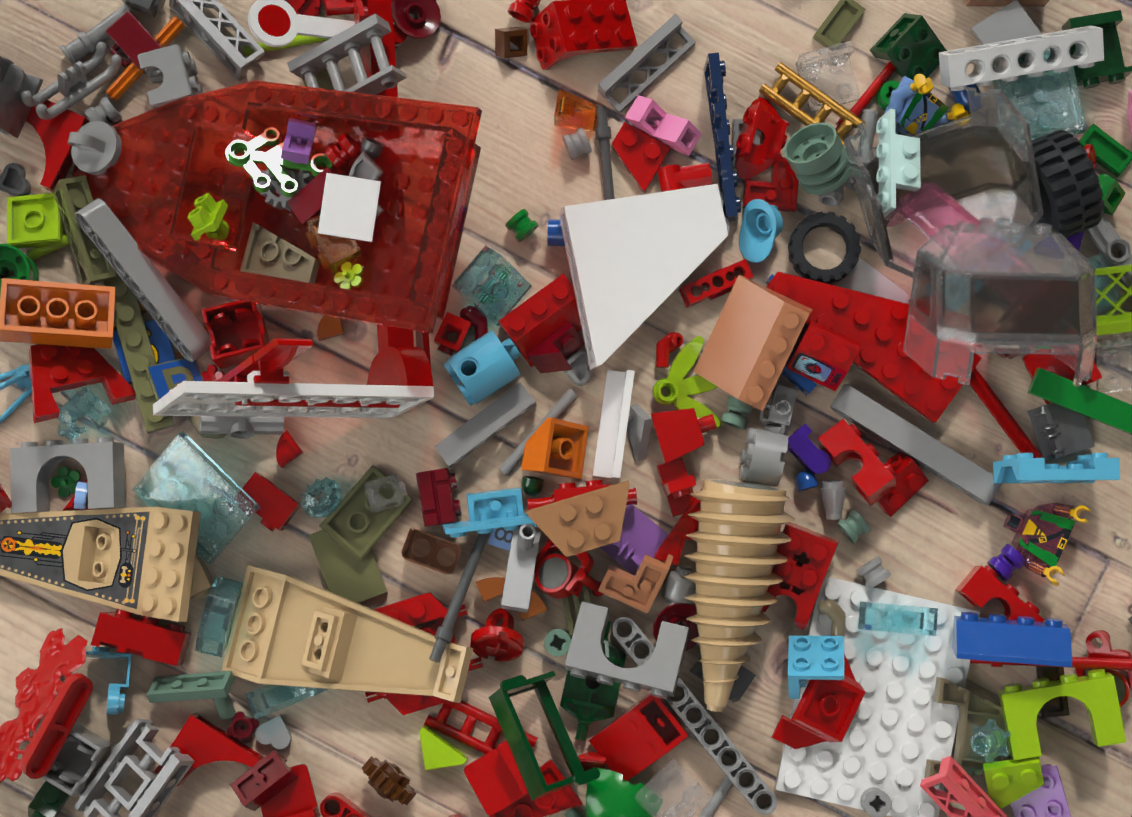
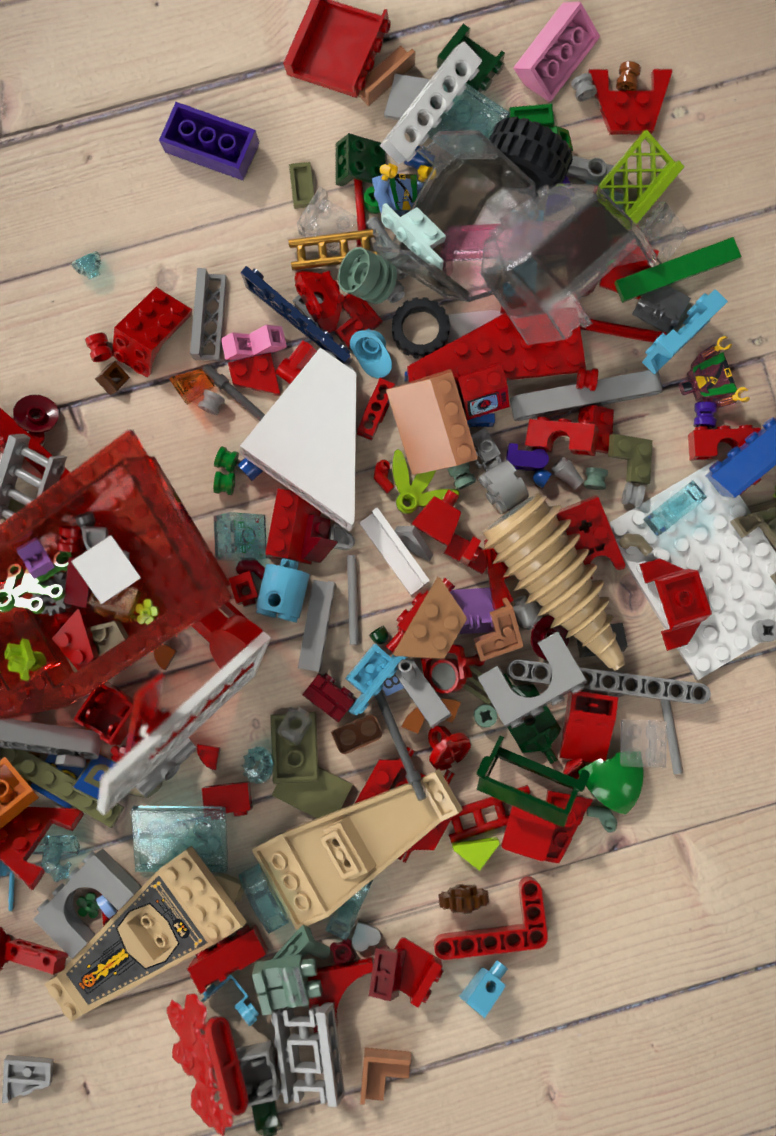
camera: 40 degrees left, 0 degrees up
(166, 343) = (70, 761): none -> light grey tile
(170, 705) = (285, 982): none -> sand green hips
(267, 244) = (76, 640): none -> red wing
(272, 217) = (59, 620): none -> red tile
(543, 206) = (226, 459): none -> green wheel
(556, 449) = (374, 599): orange slope -> none
(814, 660) = (650, 579): medium azure bracket -> none
(912, 539) = (636, 452): none -> olive plate
(928, 431) = (587, 378): none -> red wheel

